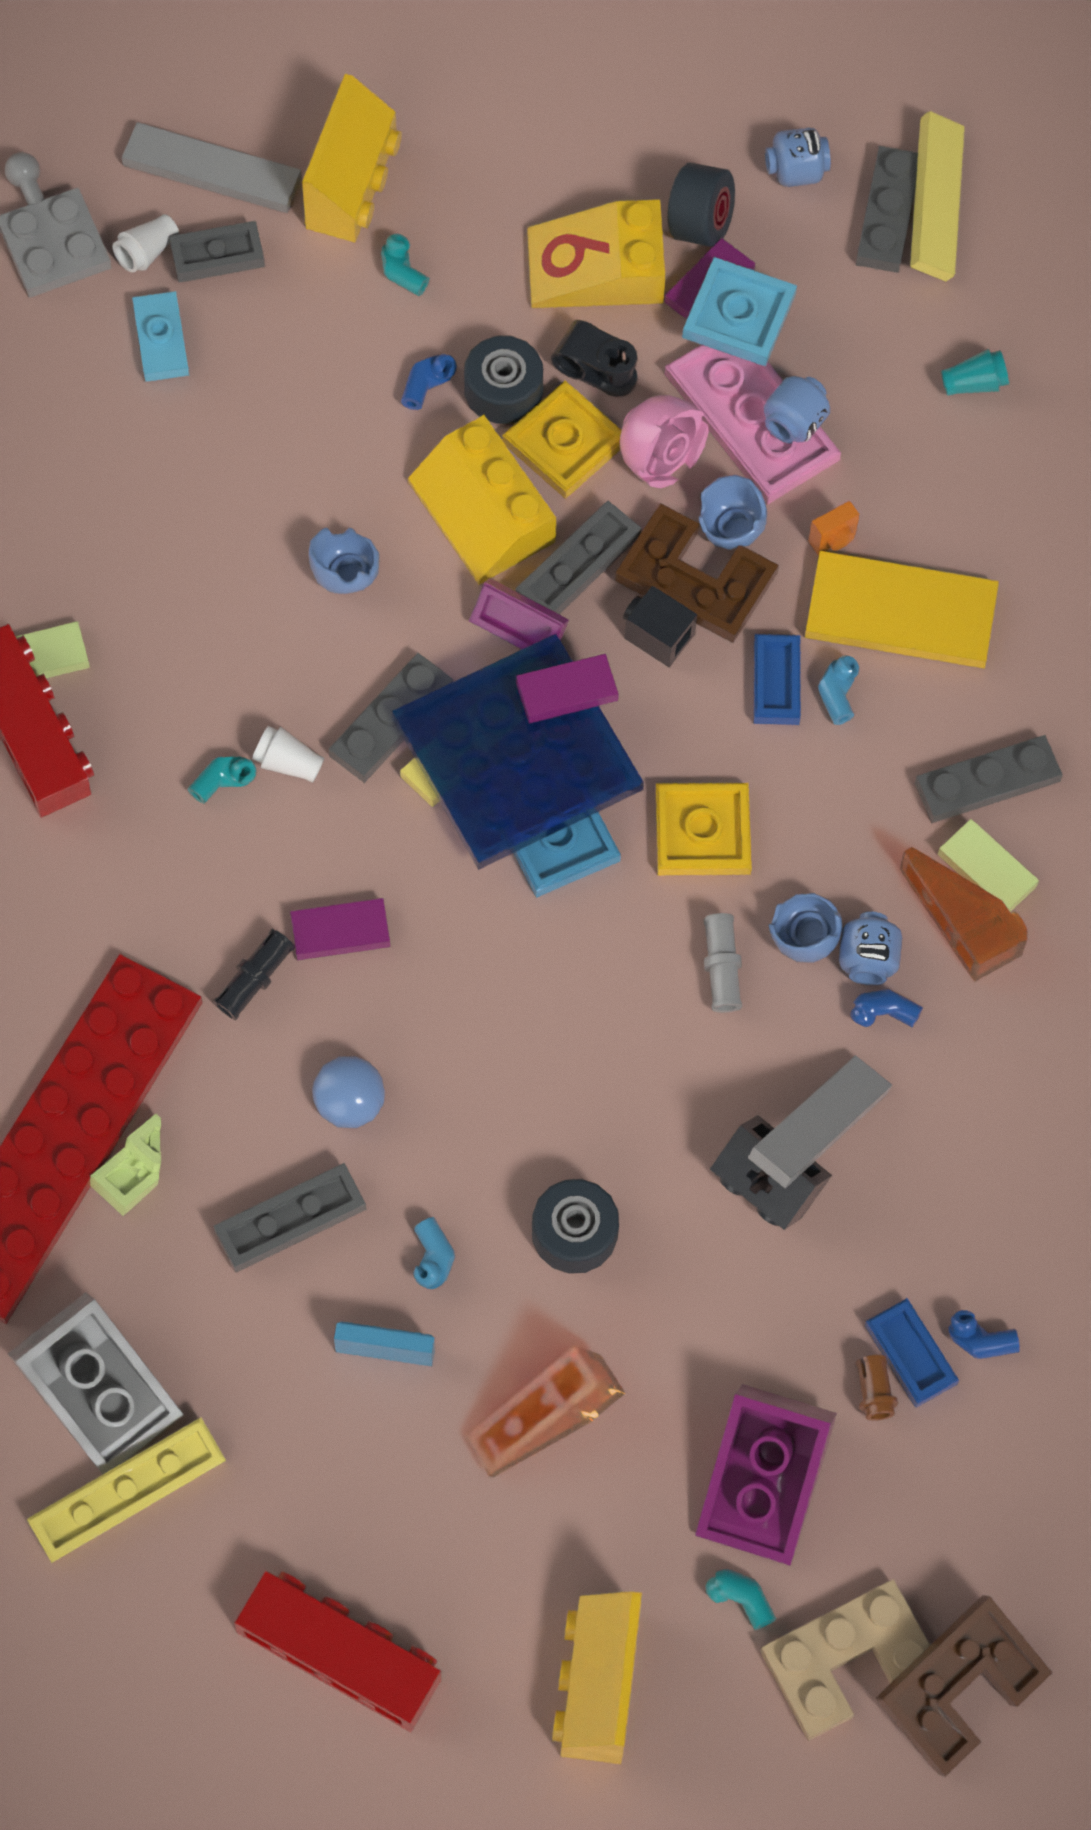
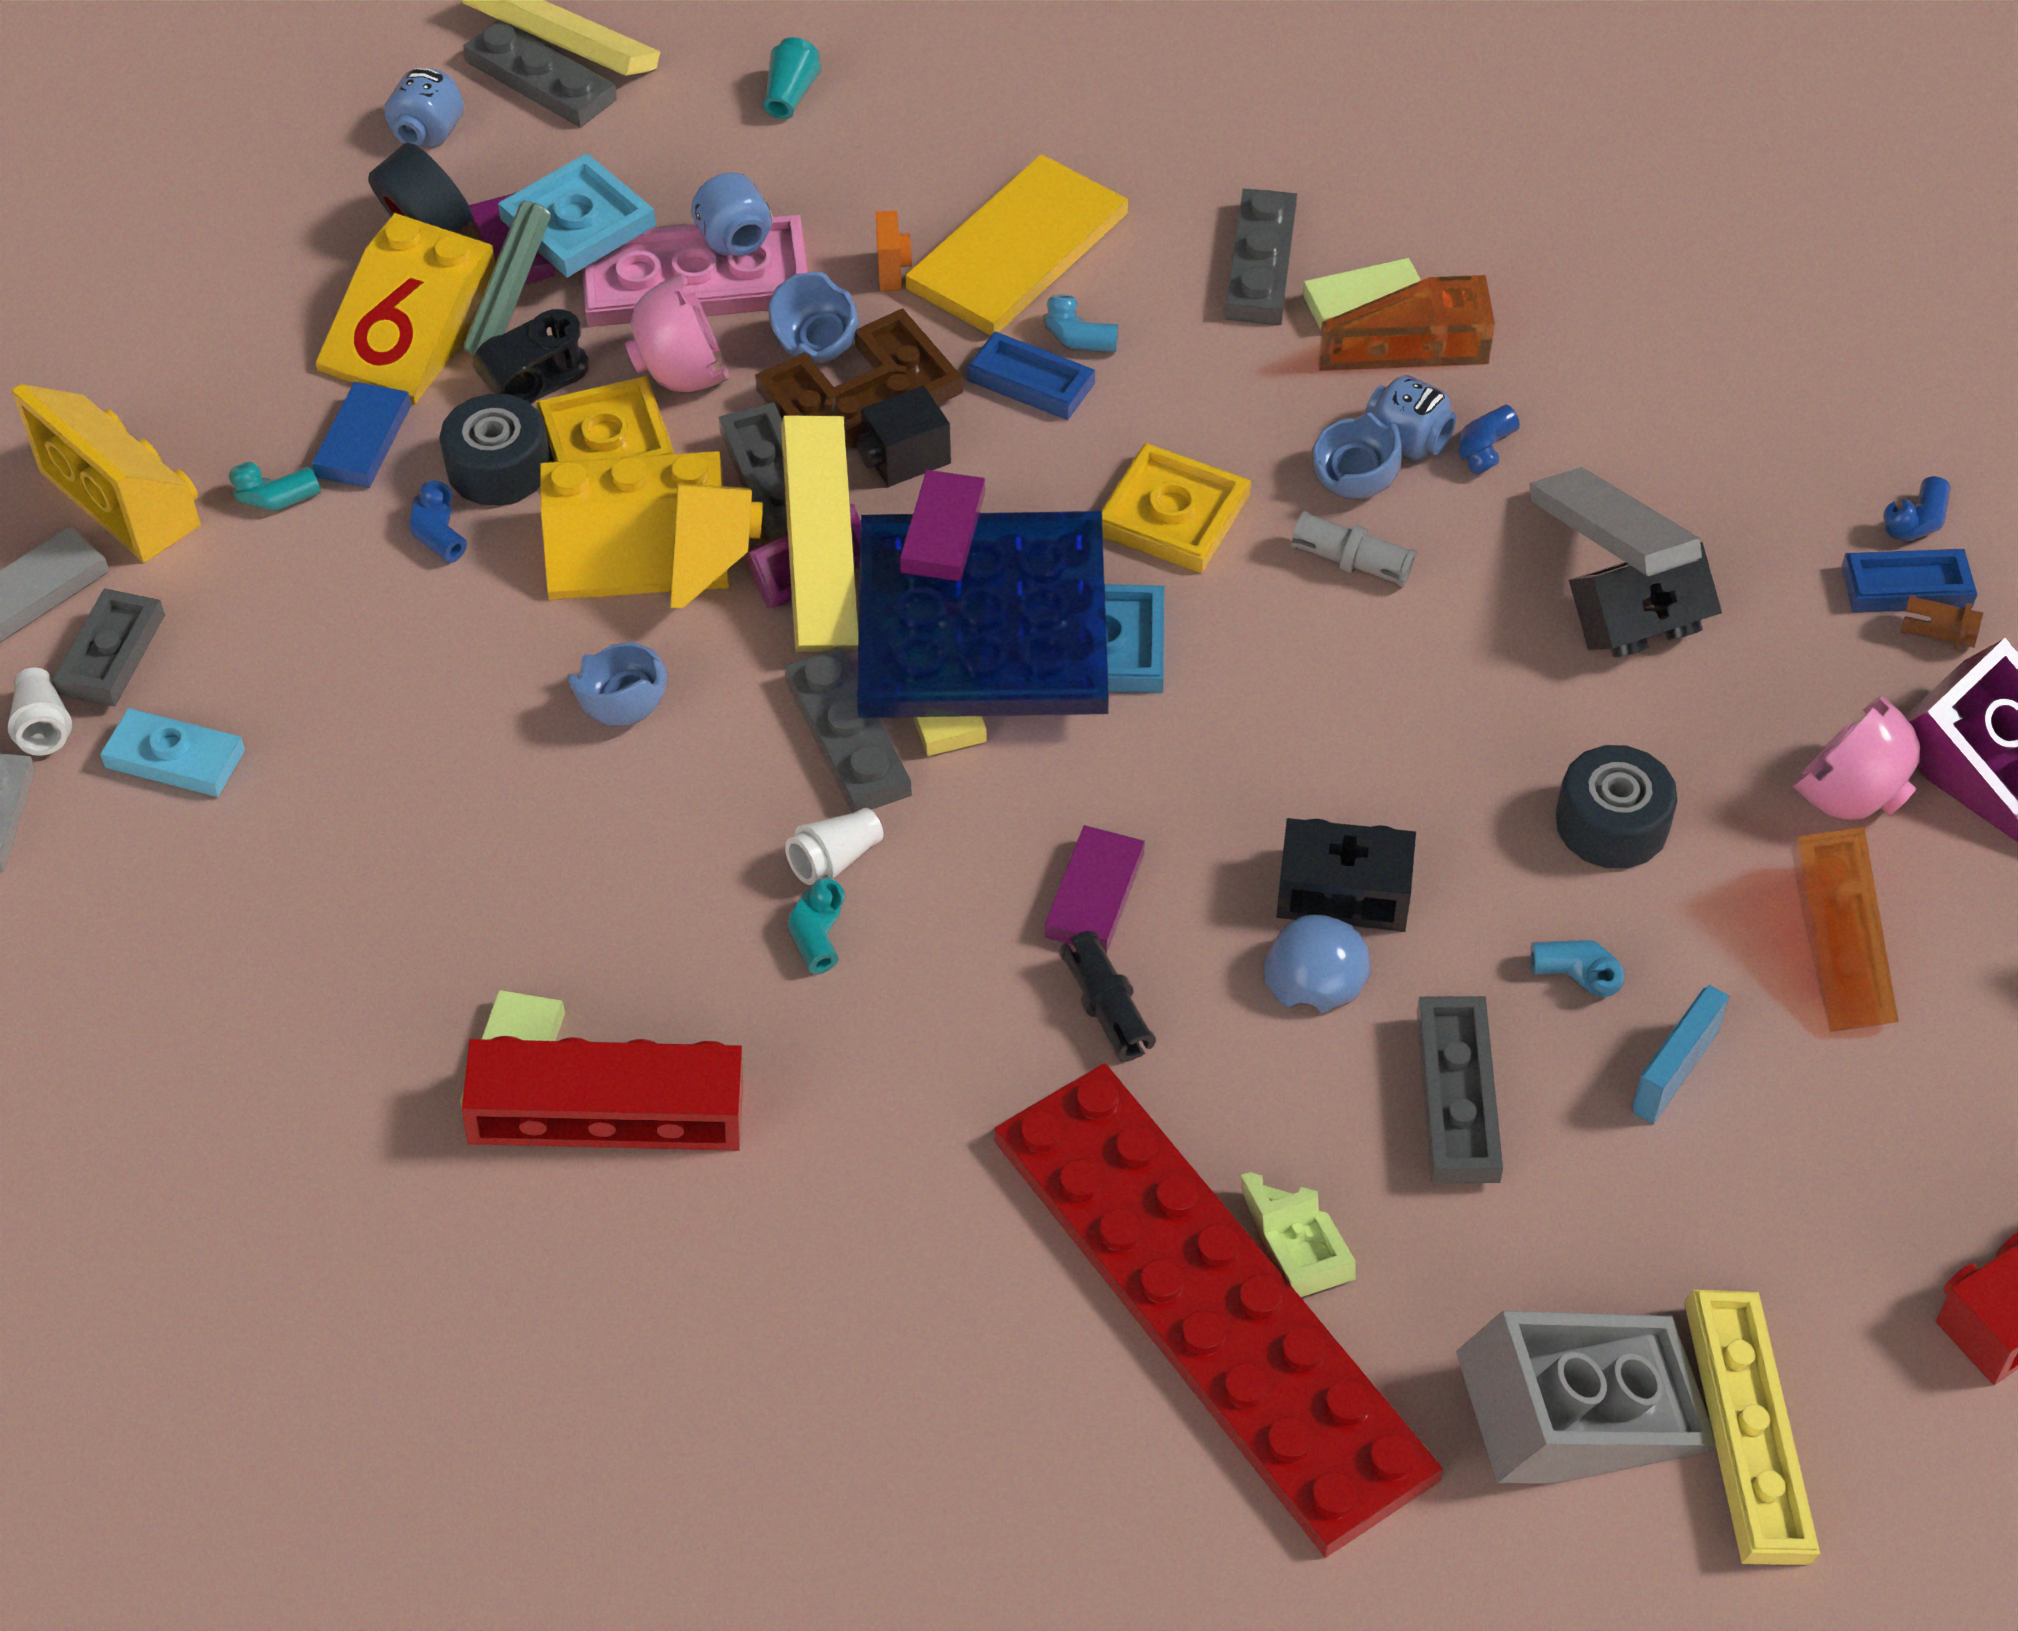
camera: 60 degrees left, 15 degrees down
(425, 1102) = (1347, 873): none -> black brick
(479, 292) = (361, 434): none -> blue tile
(481, 547) = (709, 536): none -> yellow slope
(523, 613) = (819, 533): none -> light yellow tile
(651, 302) = (508, 275): none -> sand green axle
(691, 1375) = (1864, 766): none -> bright pink cylinder

